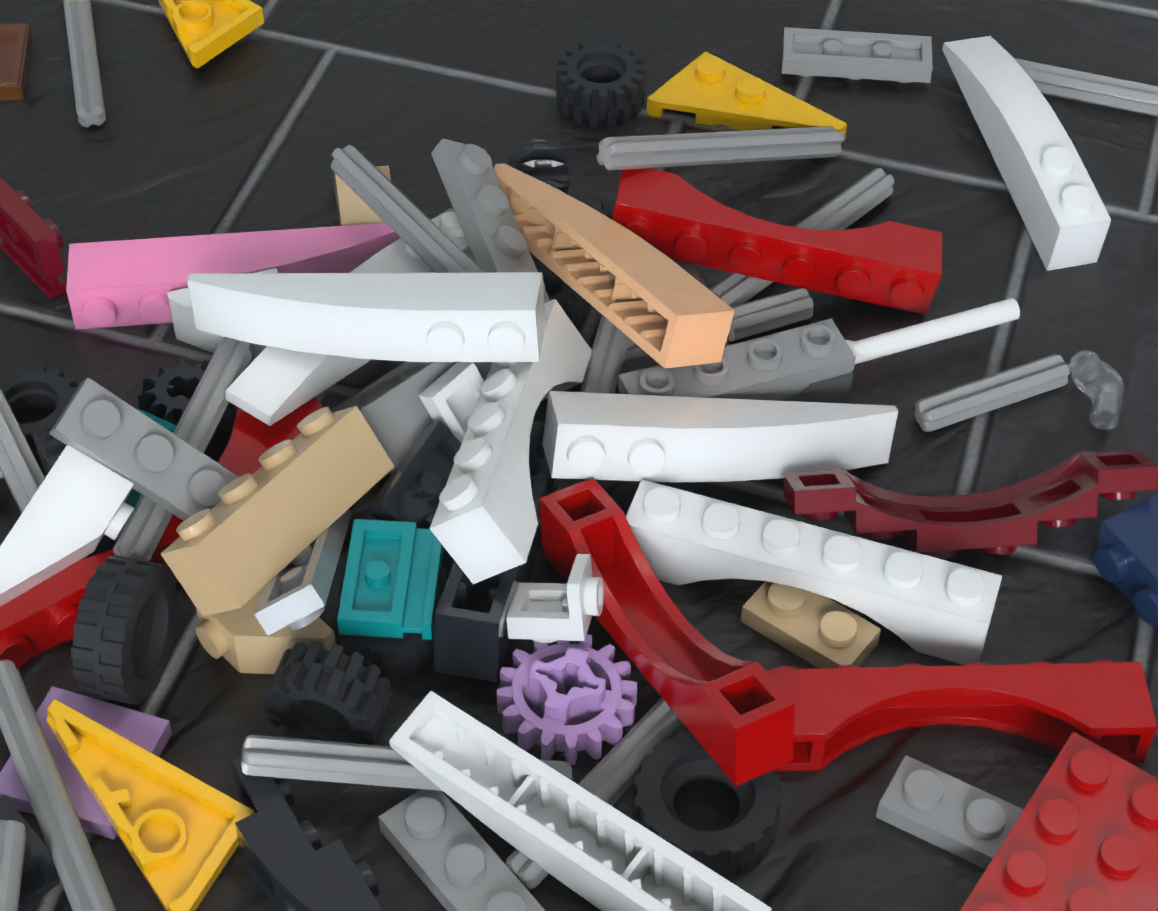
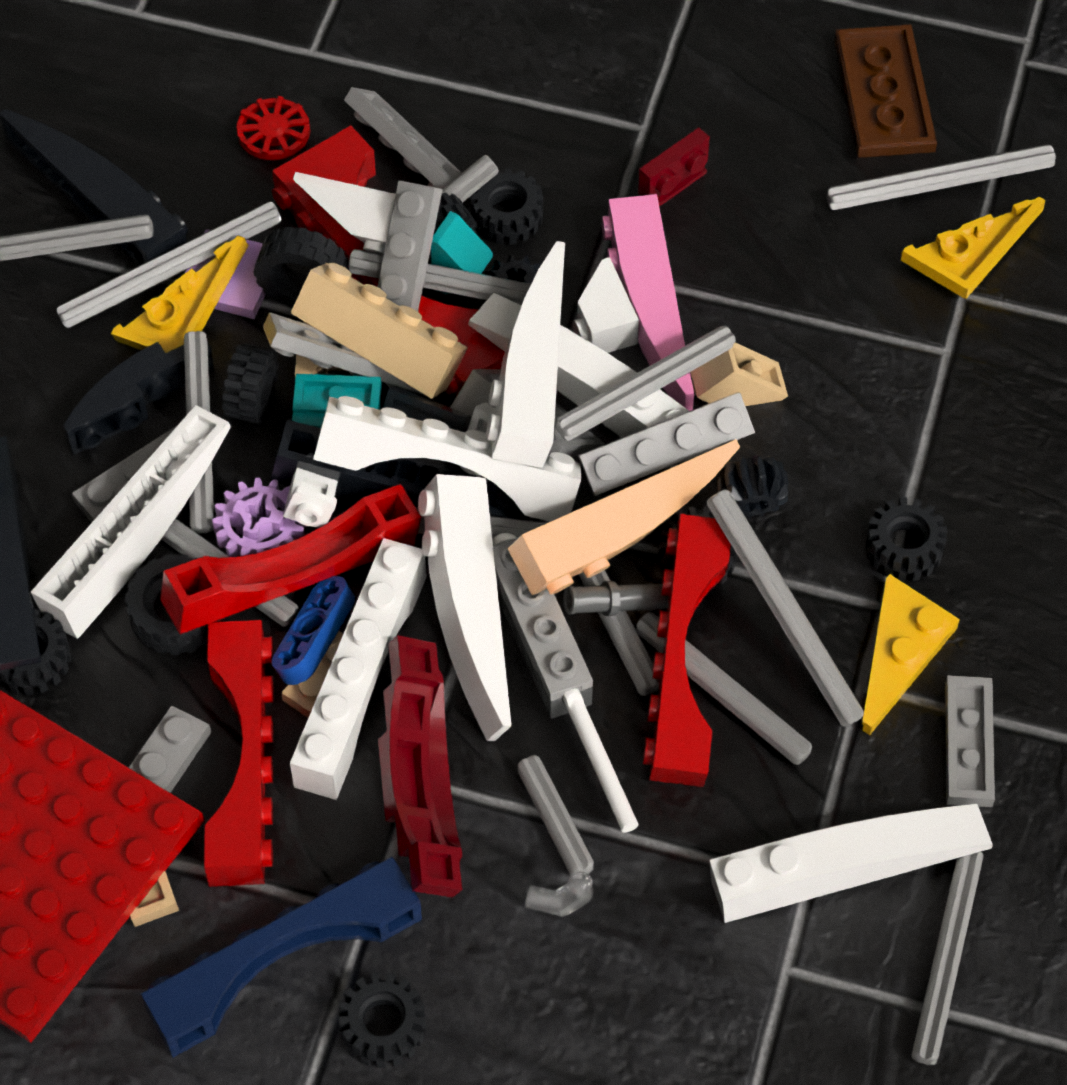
camera: 90 degrees right, 10 degrees up
(799, 622) = (302, 652): none -> blue beam

